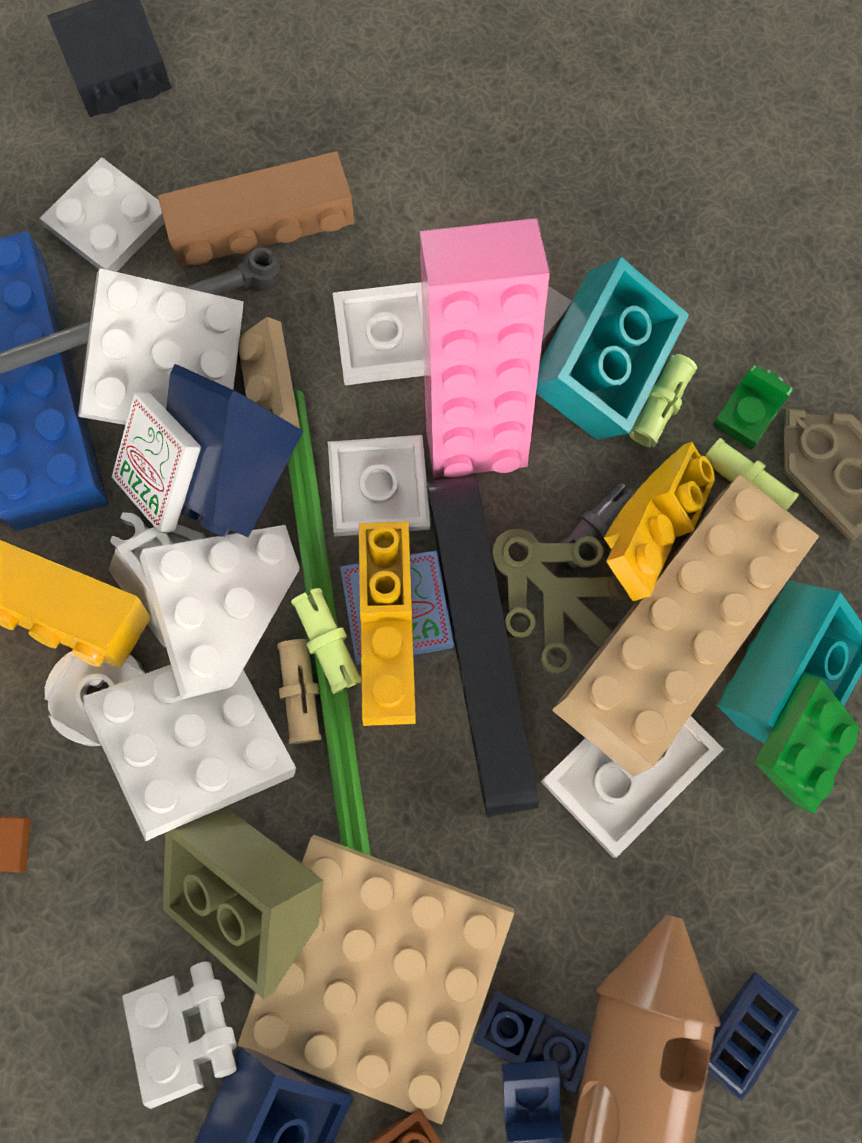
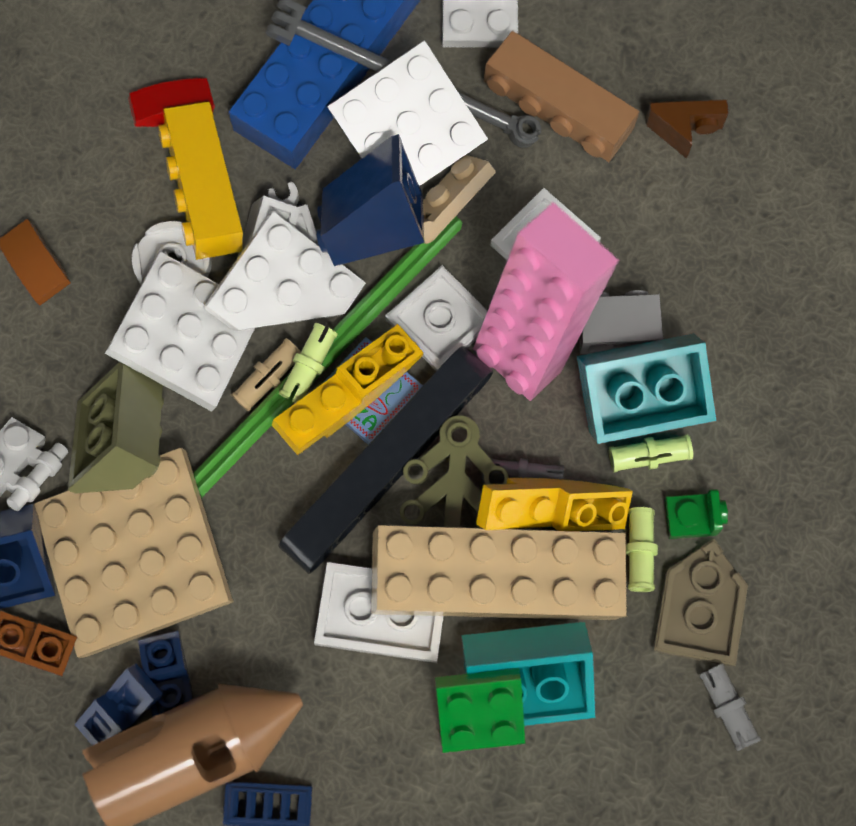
camera: 55 degrees right, 0 degrees up
(155, 462) = (334, 174): white tile -> none
(373, 132) = (677, 119): none -> reddish brown slope

